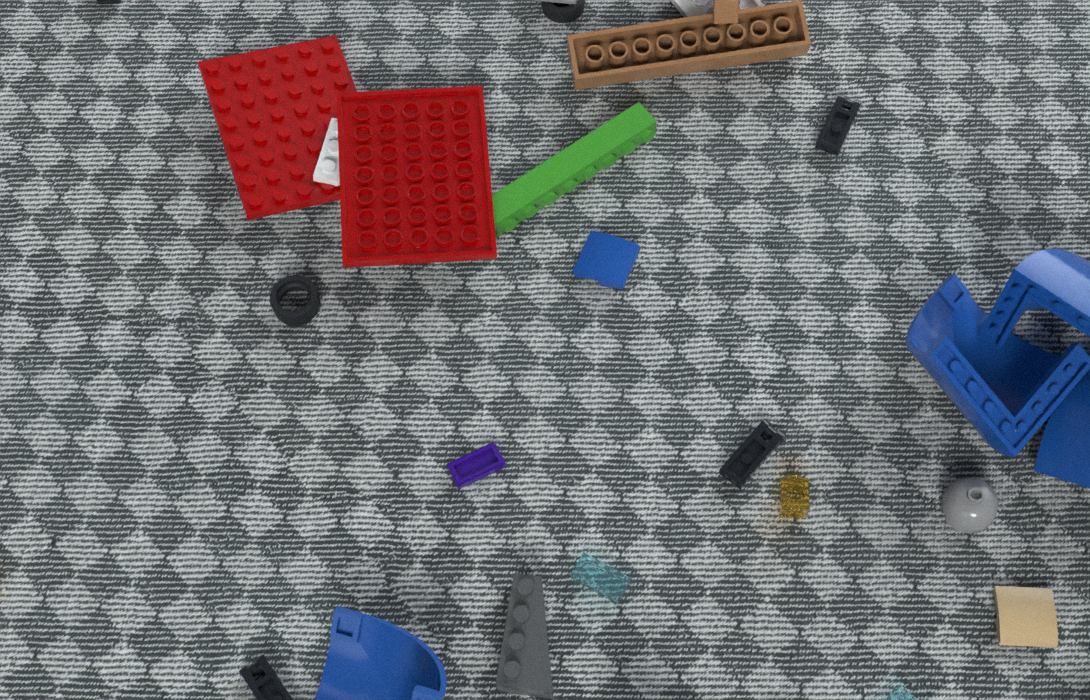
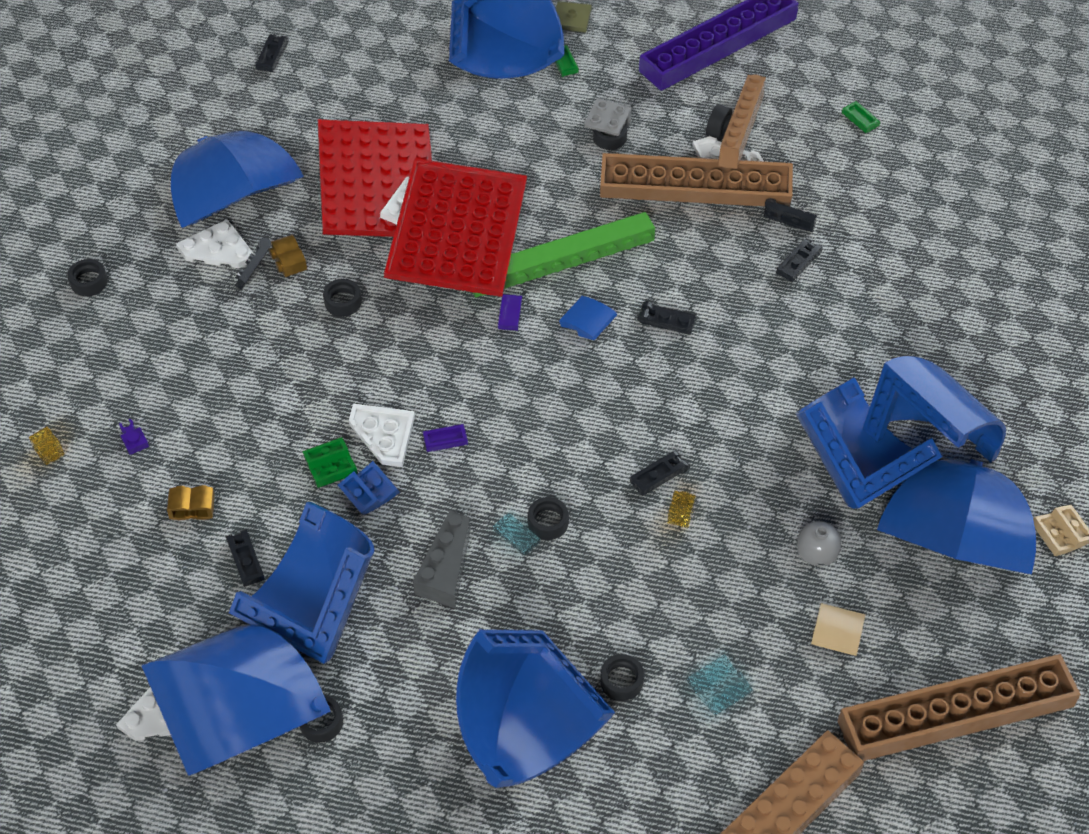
camera: 10 degrees right, 10 degrees down
(83, 558) = (133, 438): none -> dark purple plate
(103, 162) = (225, 171): none -> blue panel
(116, 262) = (216, 246): none -> white plate
(169, 277) = (253, 262): none -> black plate
(182, 634) = (190, 503): none -> pearl gold brick
(211, 257) = (288, 256): none -> pearl gold brick
(342, 533) = (329, 462): none -> green slope
(398, 476) = (383, 431): none -> white plate
(400, 559) = (368, 488): none -> blue slope
(508, 273) = (510, 312): none -> dark purple tile
(634, 528) = (546, 504): none -> black tyre
(701, 238) = (666, 318): none -> black plate
(810, 67) = (789, 215): none -> black plate

